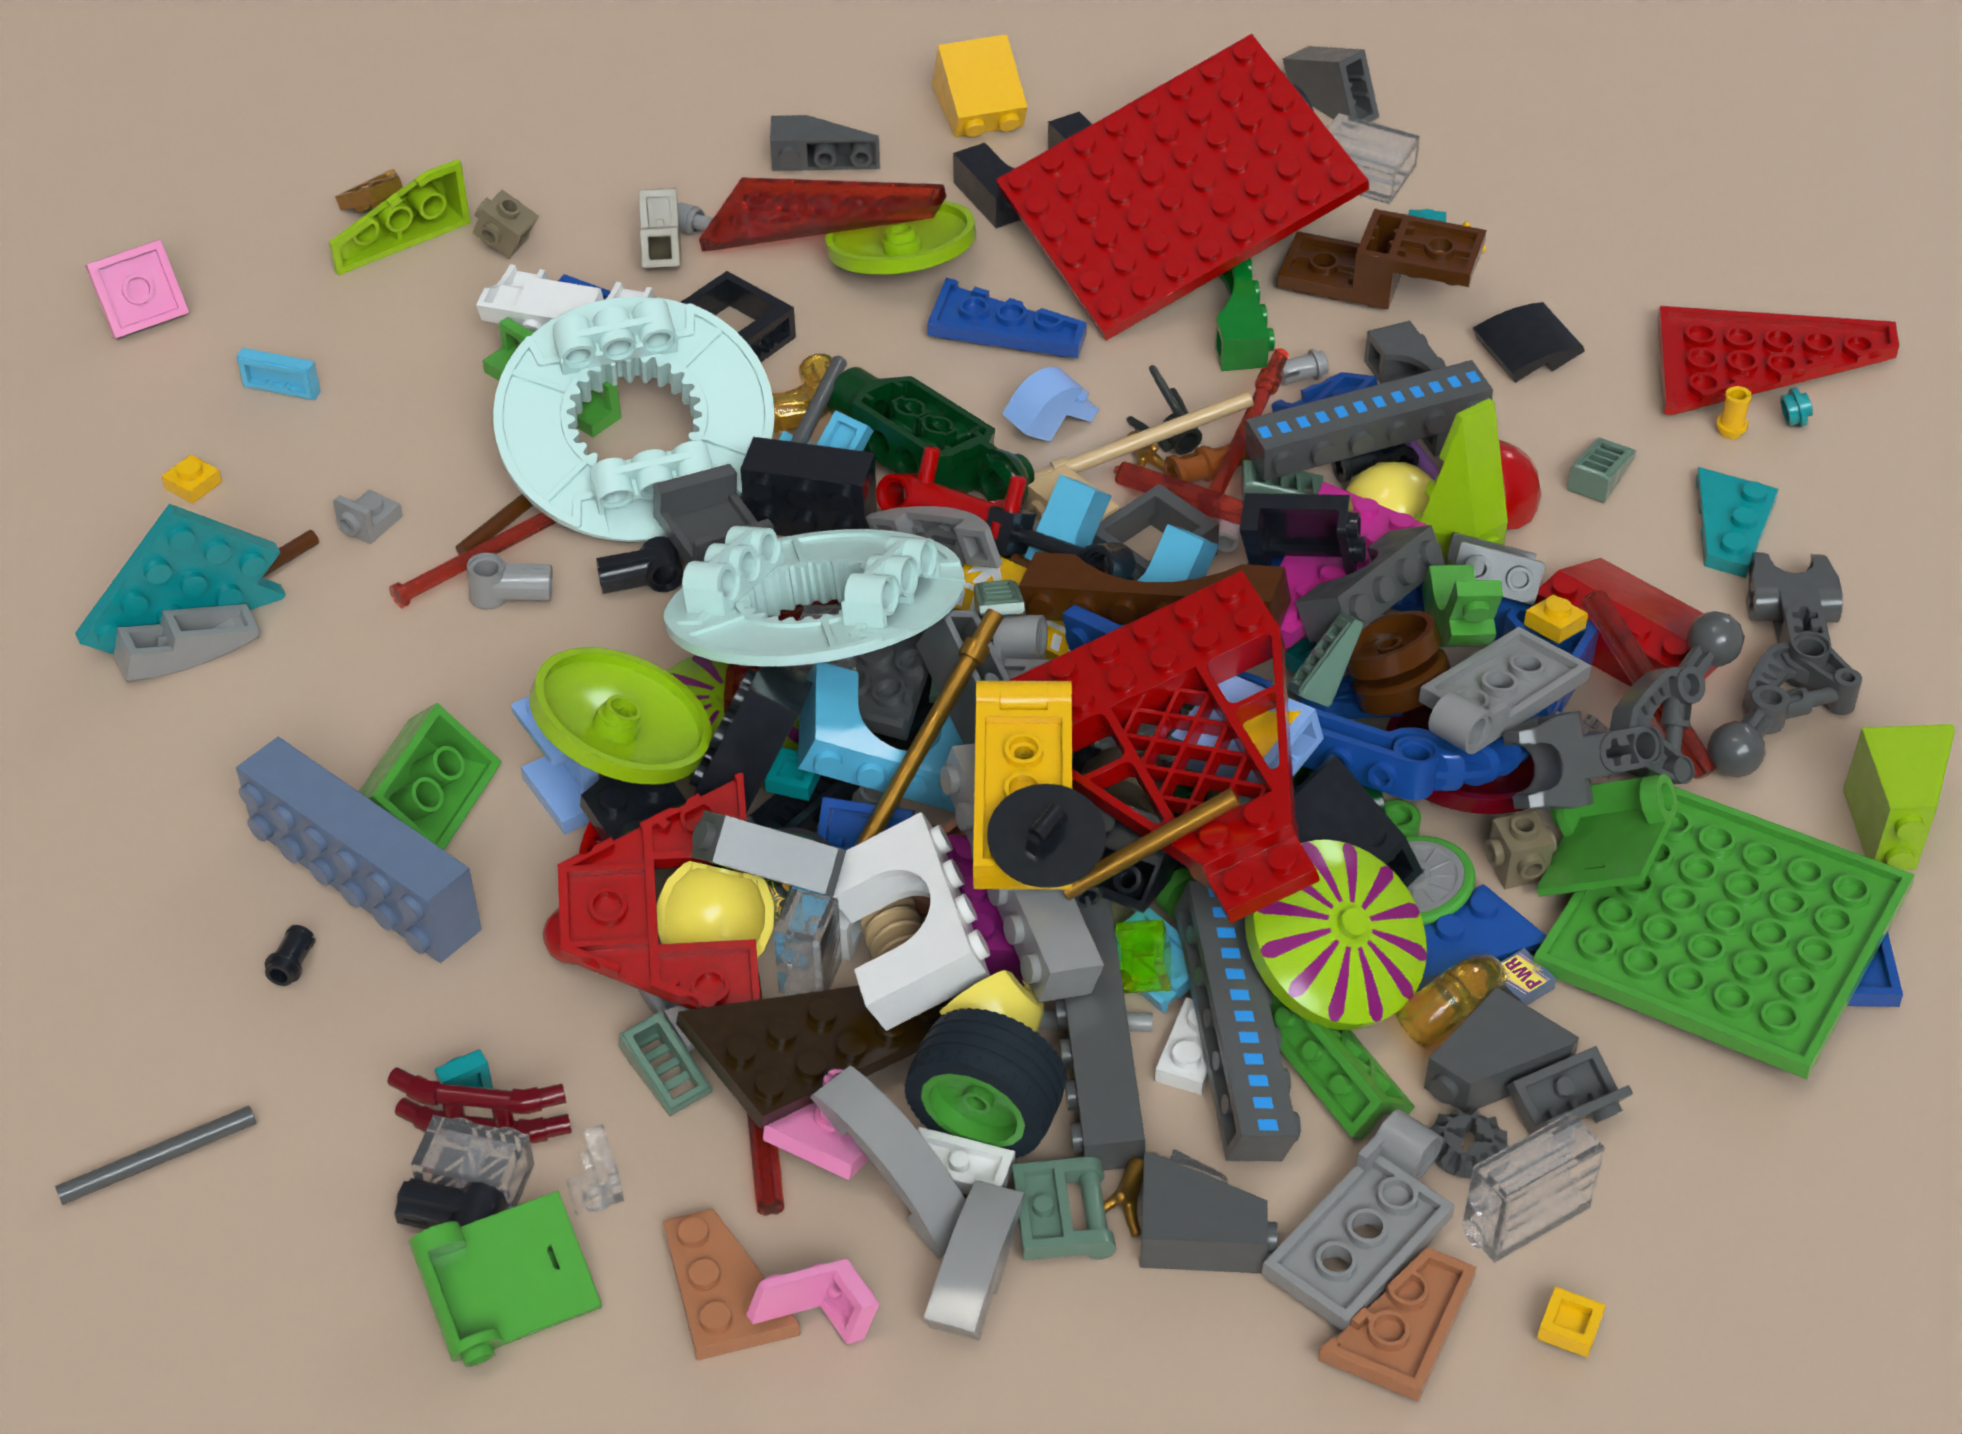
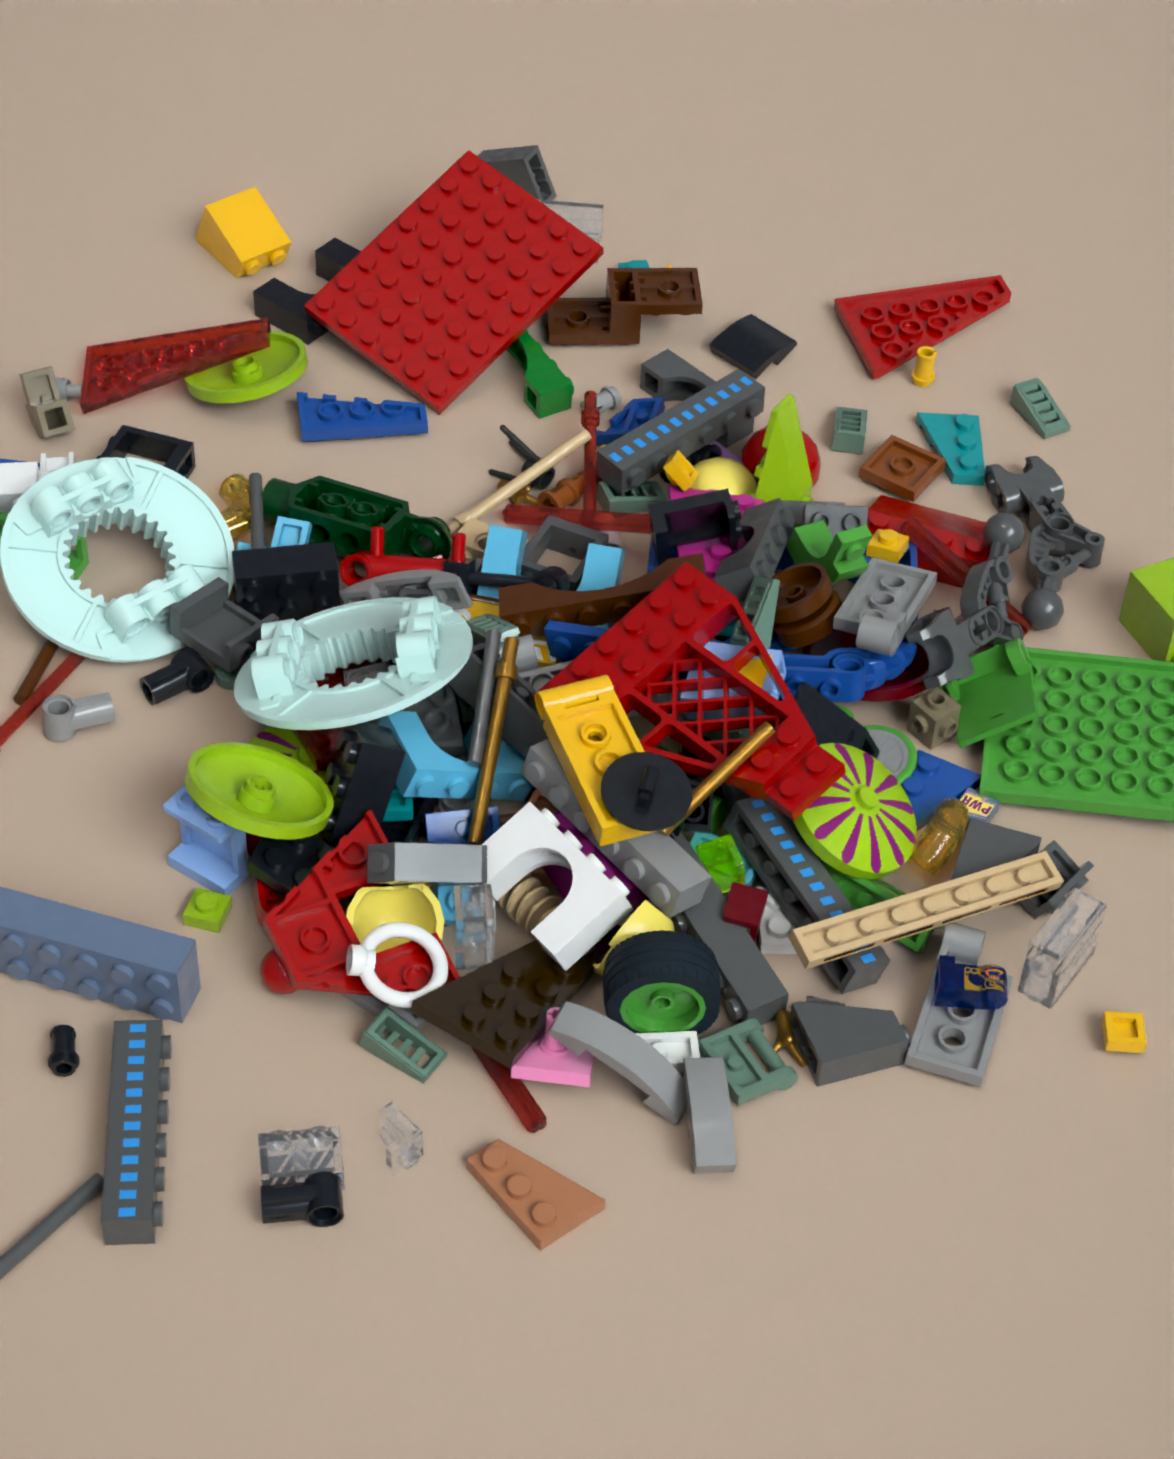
camera: 25 degrees left, 0 degrees up
(310, 1073) = (135, 1134): none -> dark grey brick
(432, 775) = (100, 874): bright green slope -> none
(466, 1071) = (258, 1102): teal plate -> none
(500, 1280) = (374, 1234): bright green door -> none
(501, 1102) = (266, 1116): dark red piece -> none
(534, 842) = (207, 910): none -> lime plate
(644, 945) = (362, 961): none -> white piece
(818, 144) = (133, 307): dark grey slope -> none
(831, 1286) = (623, 1169): bright pink bracket -> none
(937, 676) = (484, 698): none -> flat silver bar
(1045, 401) = (428, 473): light blue brick -> none
(1145, 1019) = (745, 907): none -> dark red panel
(1340, 467) = (680, 471): none -> yellow plate
(1370, 1084) = (924, 909): none -> tan plate
(1382, 1198) = (969, 985): none -> clear blue leg
(1406, 1327) = (1019, 1069): nougat wing -> none
(1452, 1127) = (1012, 933): dark grey gear -> none
(1643, 531) = (902, 468): none -> dark orange plate
(1796, 407) = (962, 353): teal plate -> none
(1861, 485) = (1023, 400): none -> sand green slope

